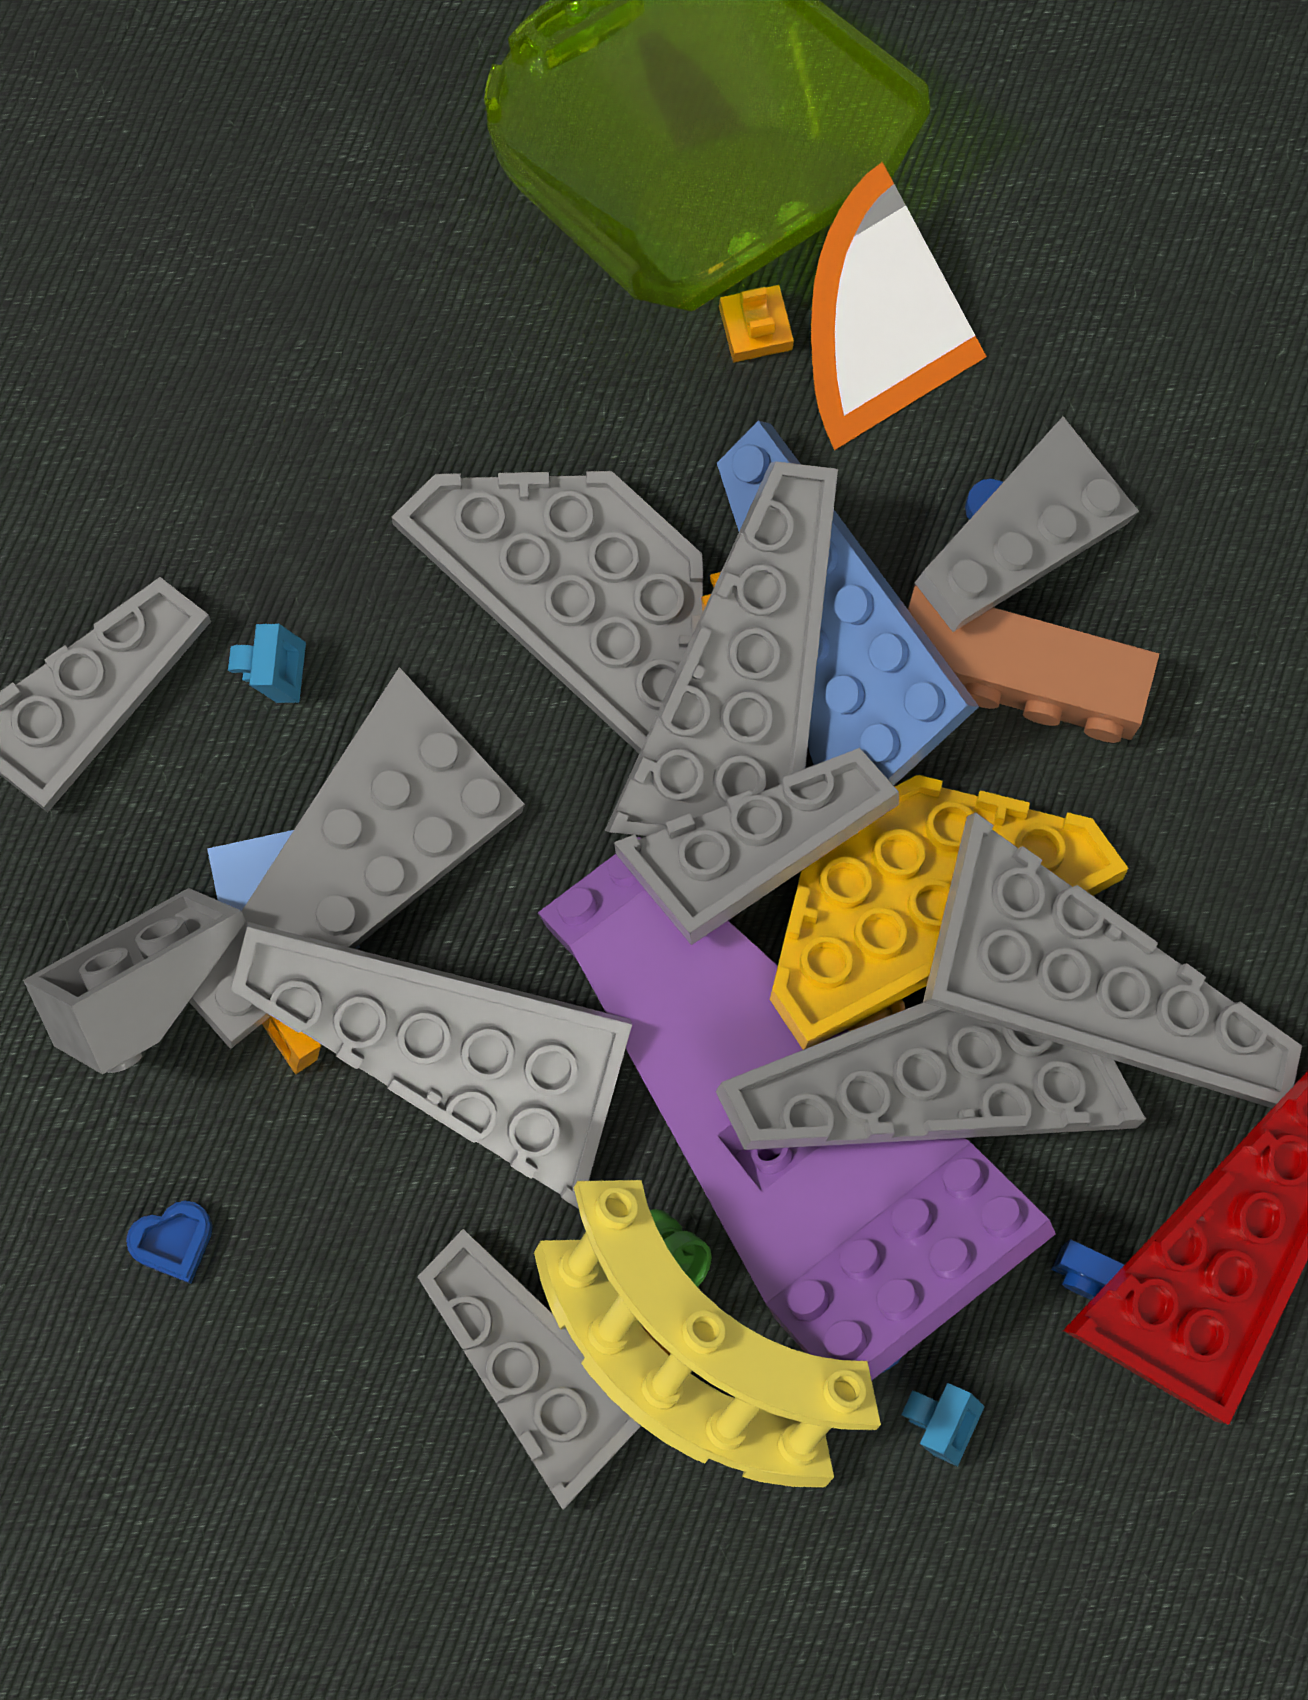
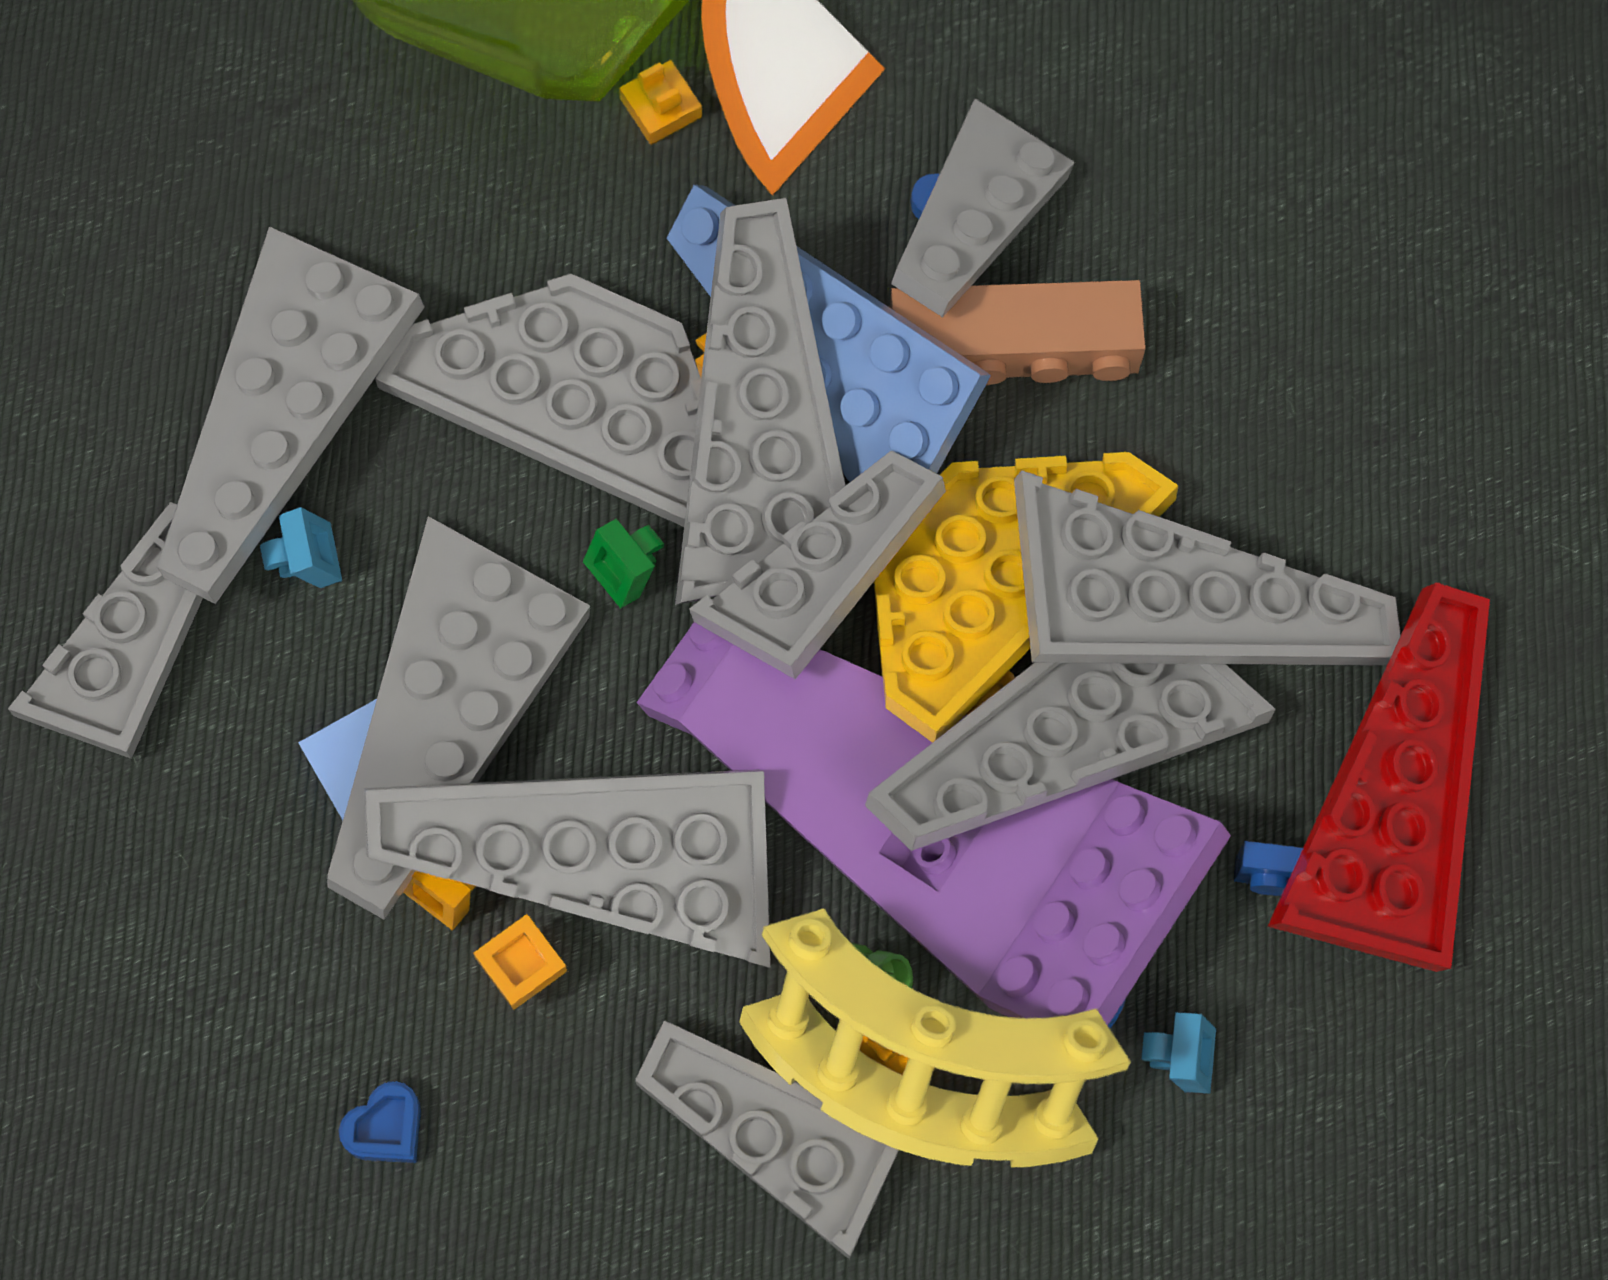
camera: 15 degrees left, 5 degrees down
(133, 981) = (267, 887): light grey slope -> none
(315, 487) = (291, 377): none -> light grey wing
(346, 1129) = (520, 961): none -> light orange tile
(569, 771) = (622, 560): none -> green tile

